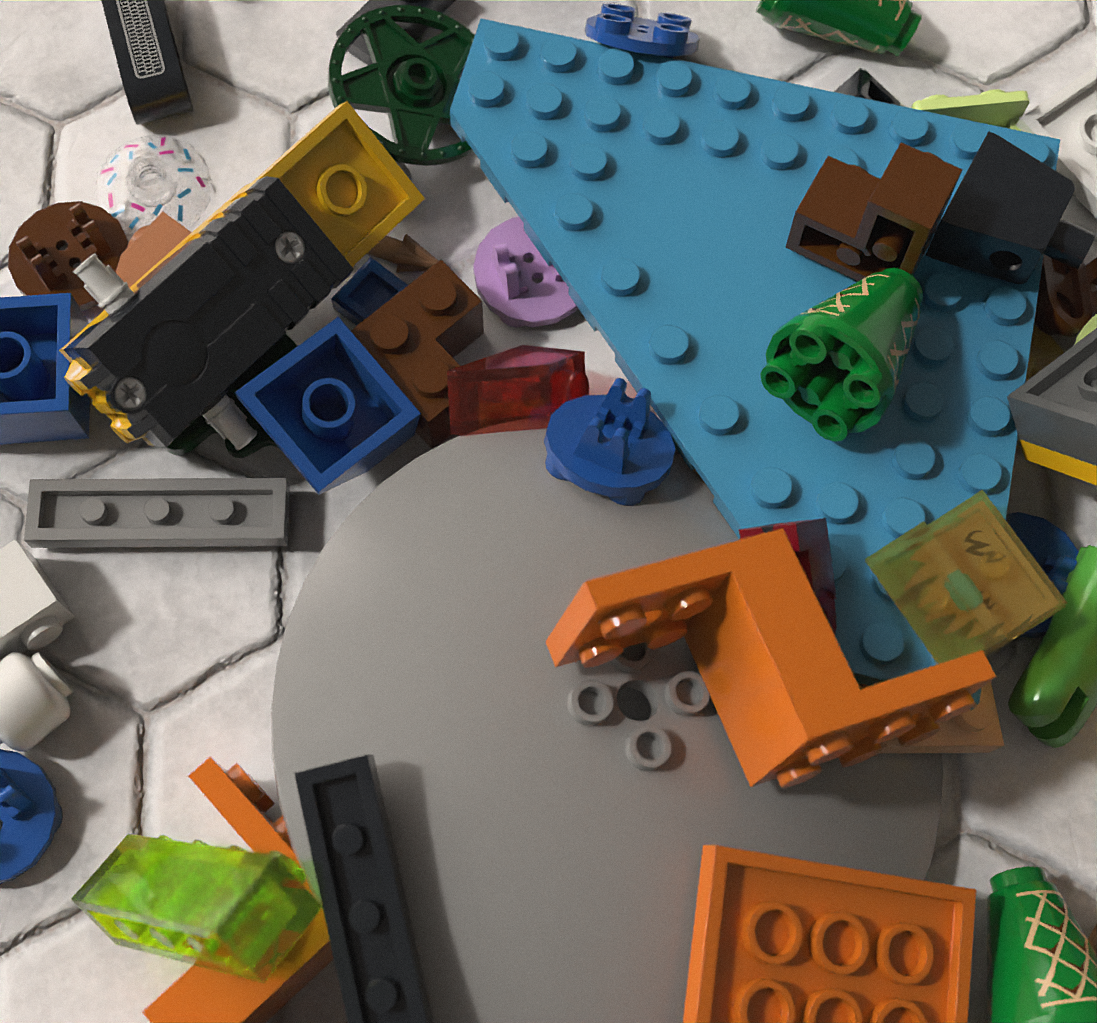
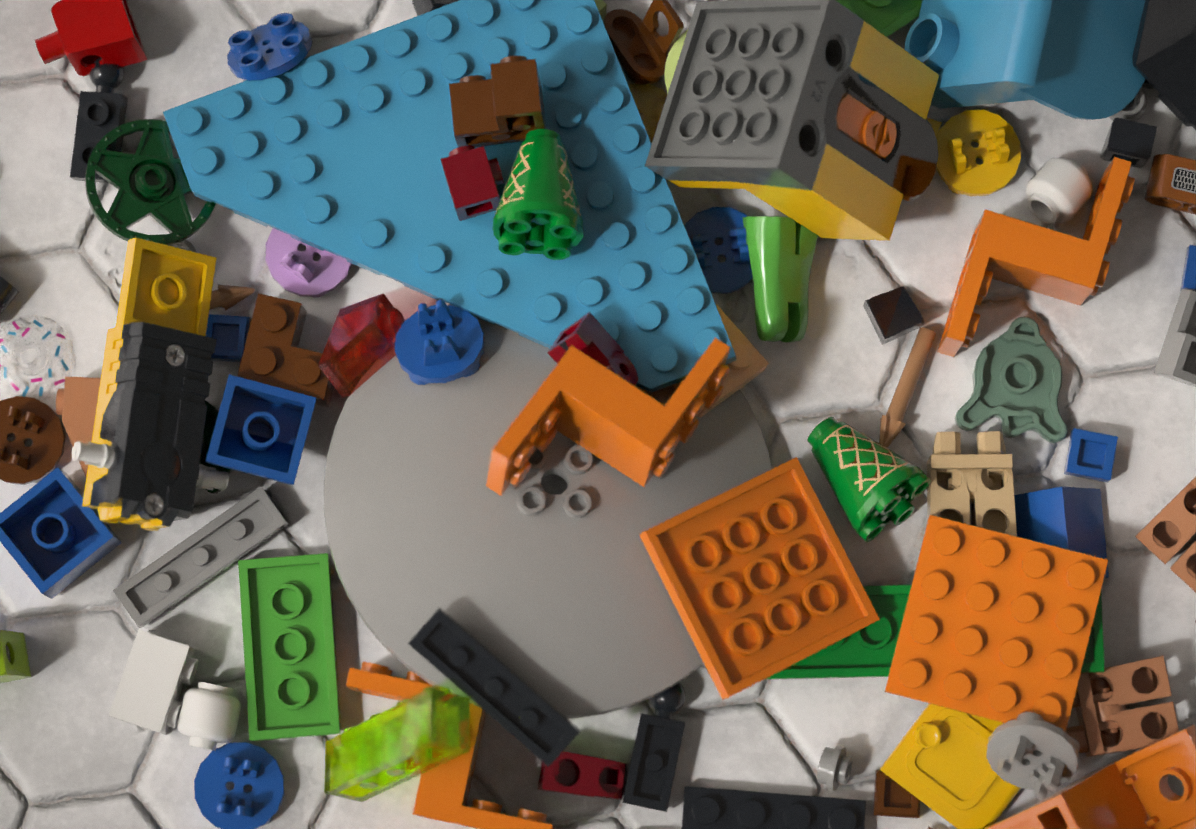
camera: 30 degrees left, 10 degrees up
(173, 691) = (289, 647): none -> bright green plate
(779, 281) = (472, 181): none -> dark red brick
(965, 581) = (686, 295): clear yellow slope -> none
(1009, 216) = (577, 46): black torso -> none

